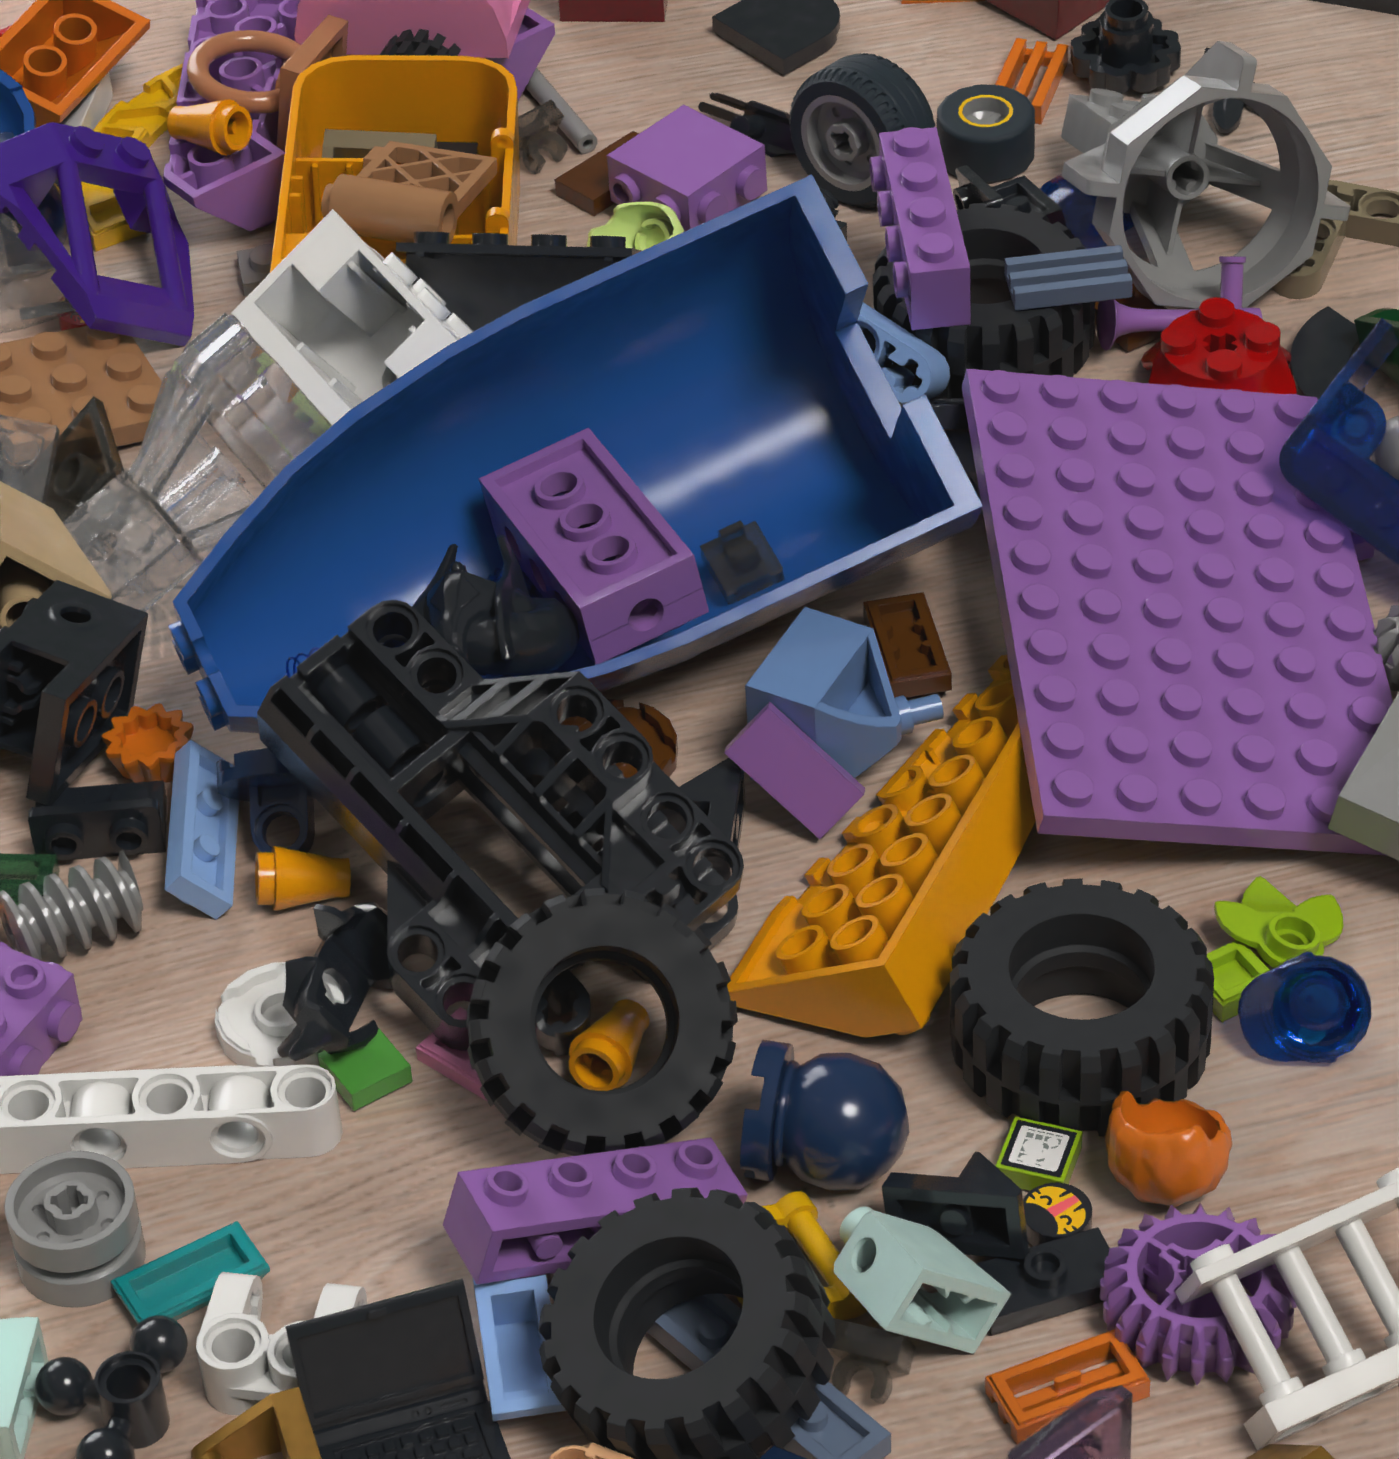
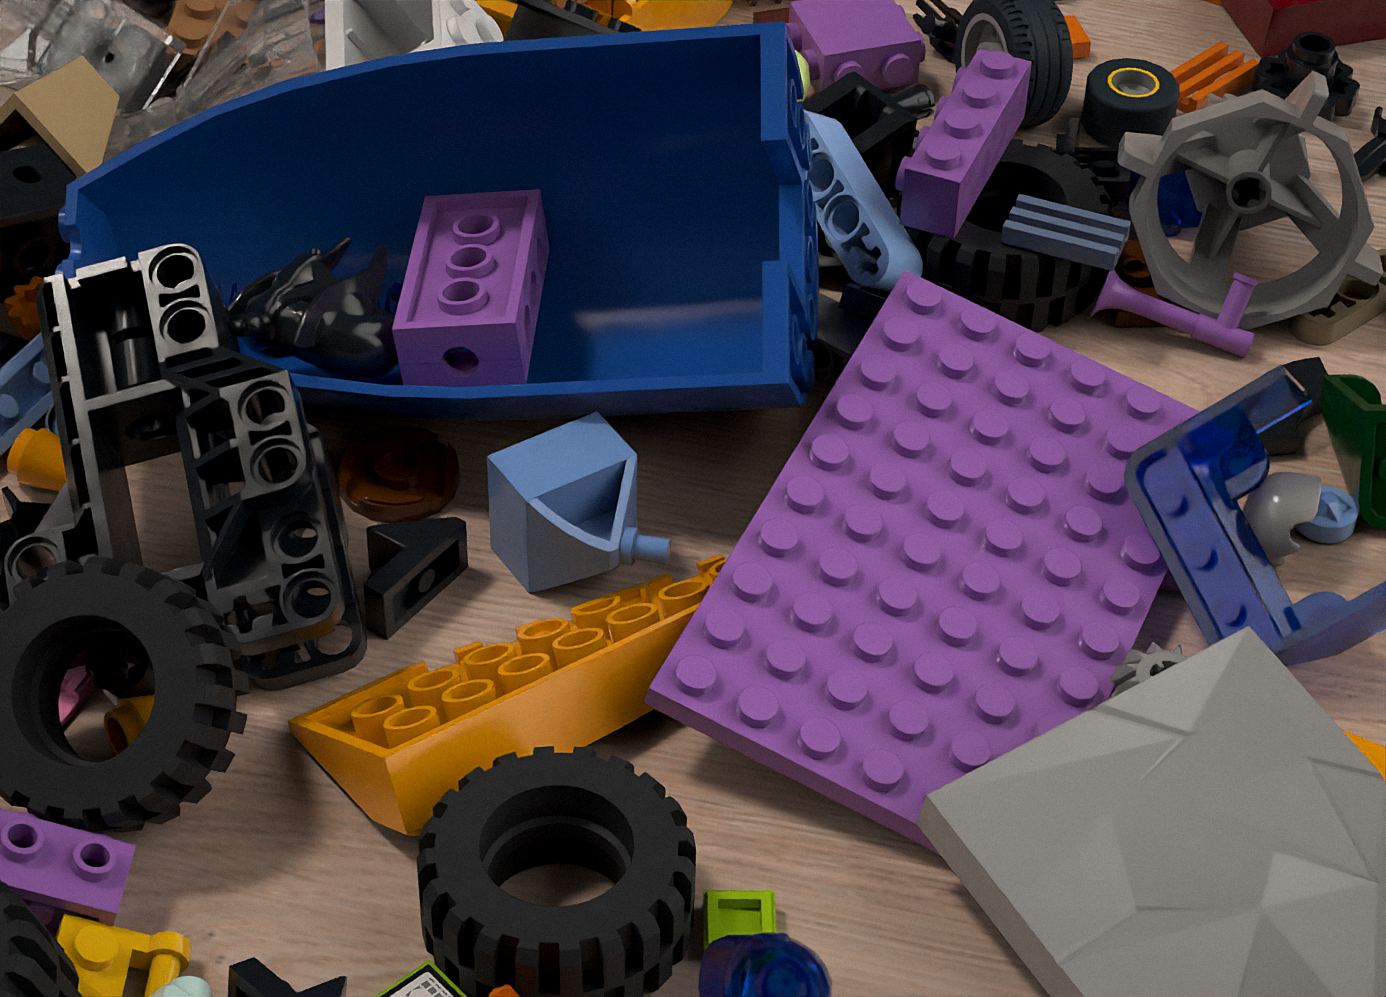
camera: 25 degrees right, 0 degrees up
(741, 561) = (610, 352): clear smoke tile -> none
(794, 770) = (497, 552): medium lavender tile -> none
(828, 1119) = (237, 872): dark blue tile -> none
(909, 644) = (706, 492): reddish brown plate -> none
(1221, 351) = (1179, 355): red brick -> none
(1277, 925) = (828, 892): lime plate -> none

